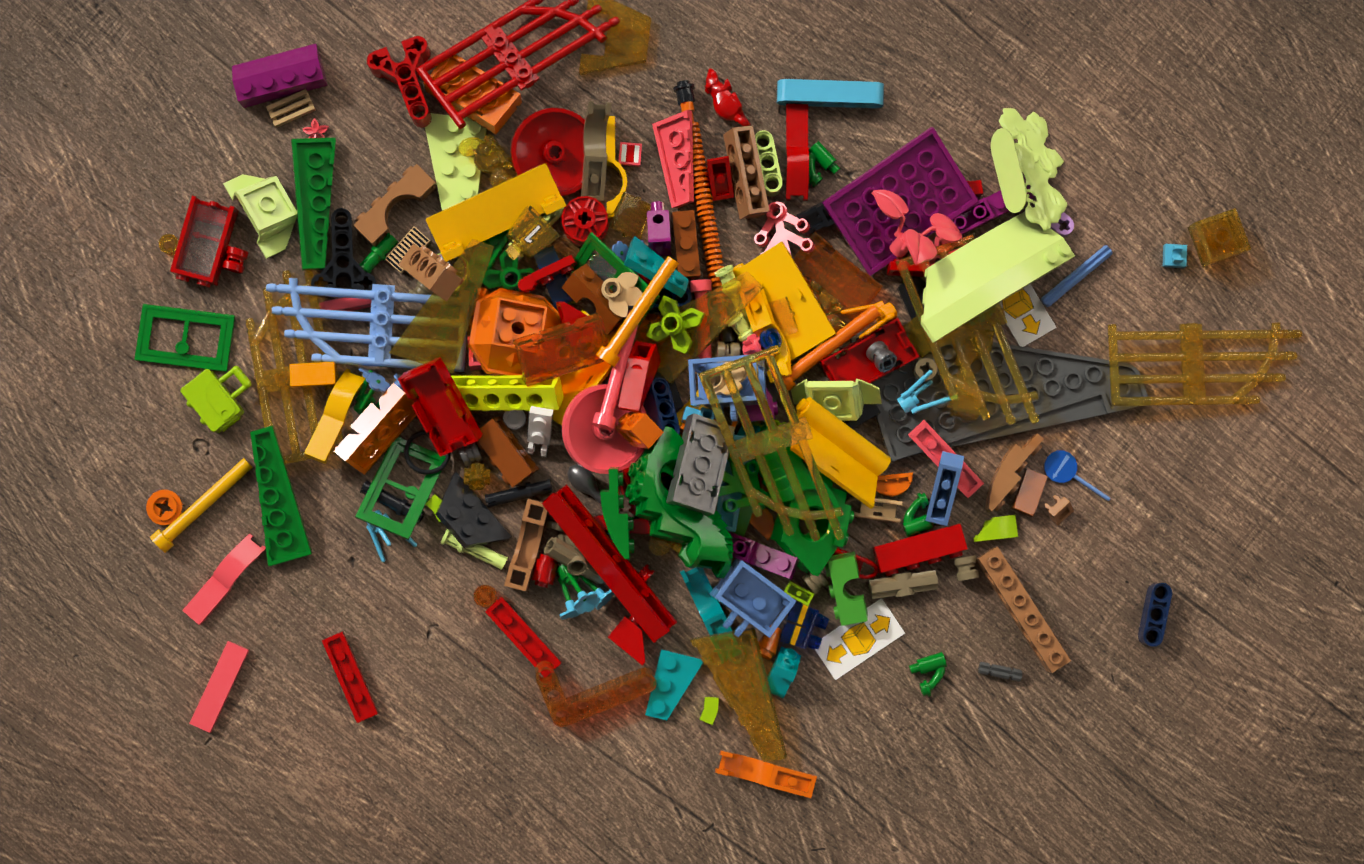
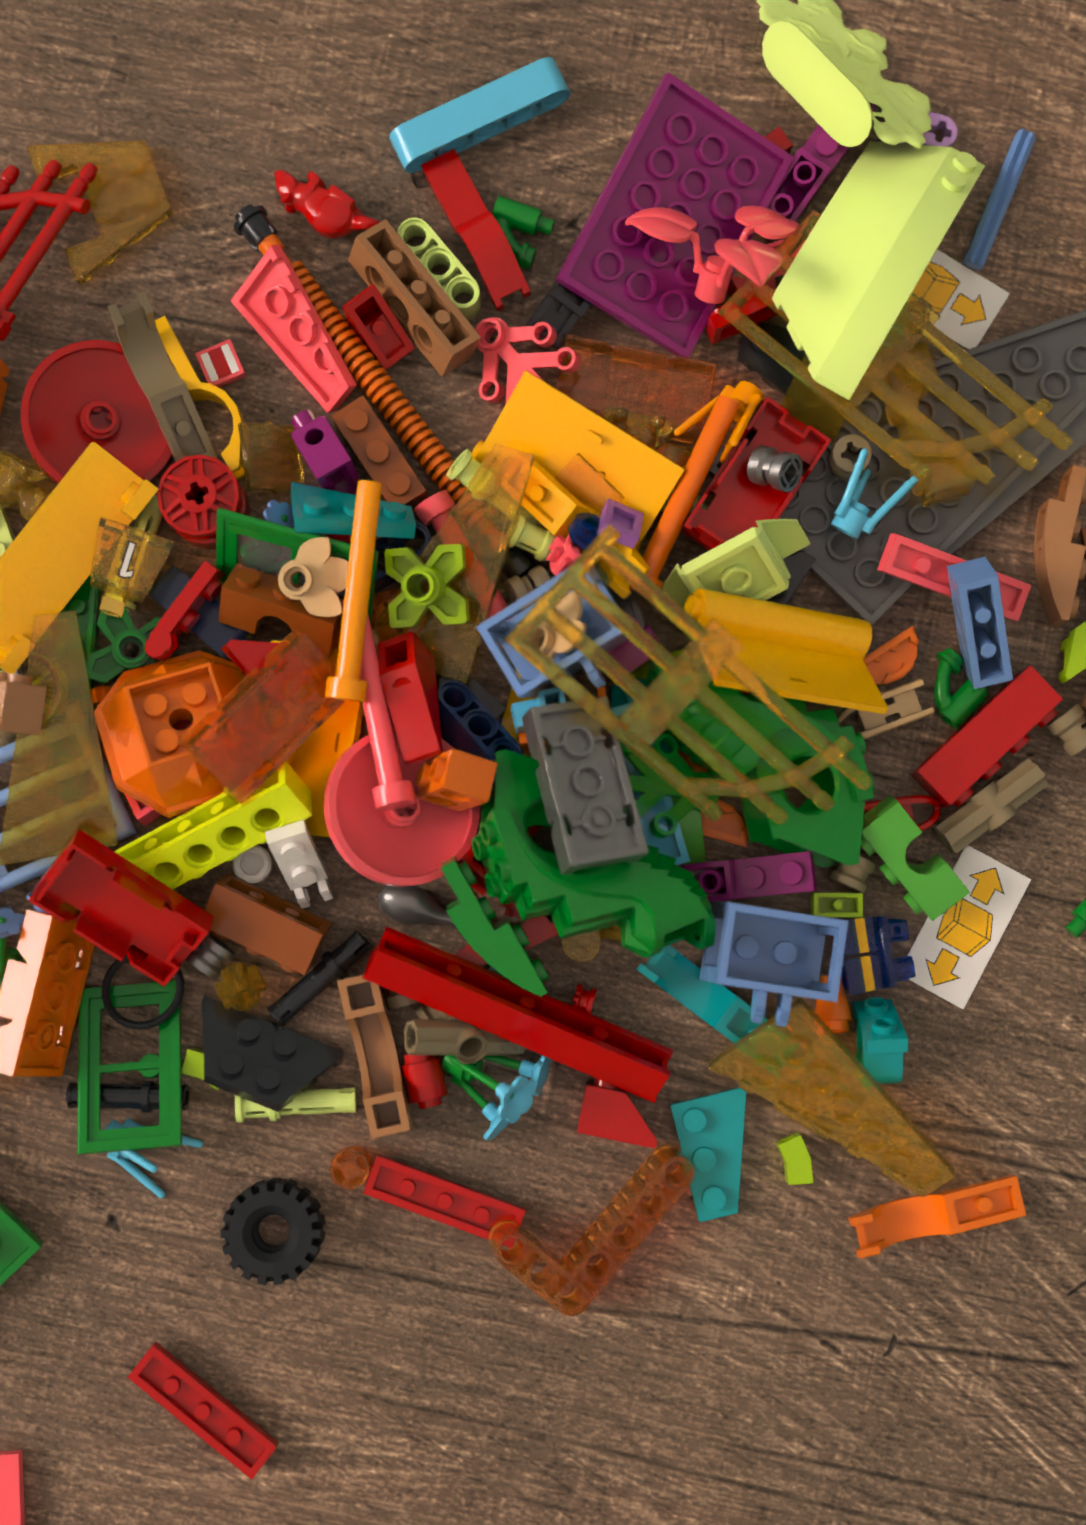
camera: 20 degrees left, 0 degrees up
(413, 604) = (265, 1260): none -> black tyre
(789, 343) = (624, 520): none -> medium lavender tile

